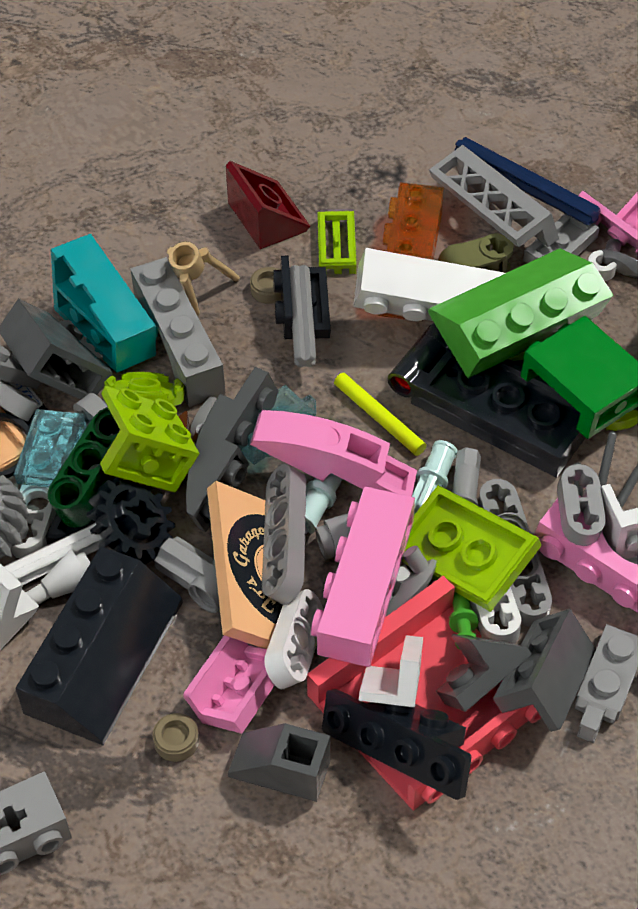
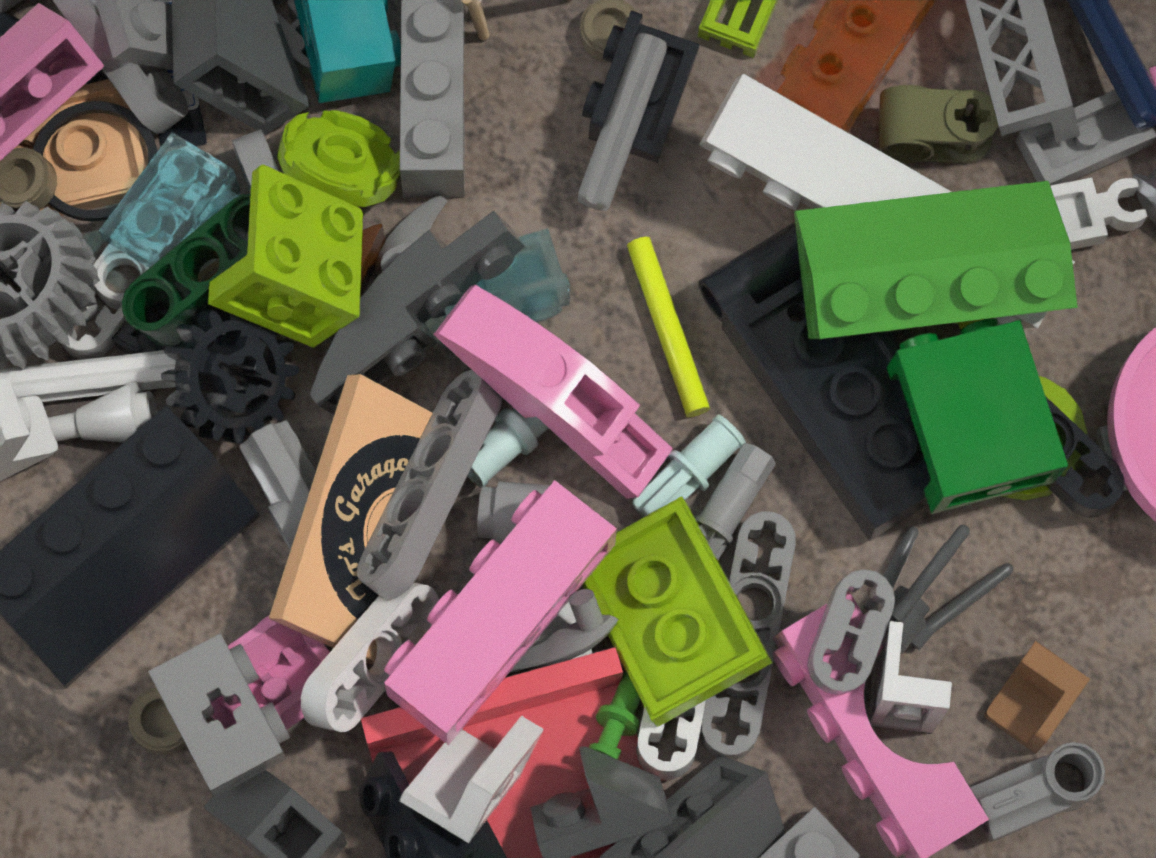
camera: 20 degrees right, 20 degrees up
(224, 719) = (188, 688): none -> light grey brick

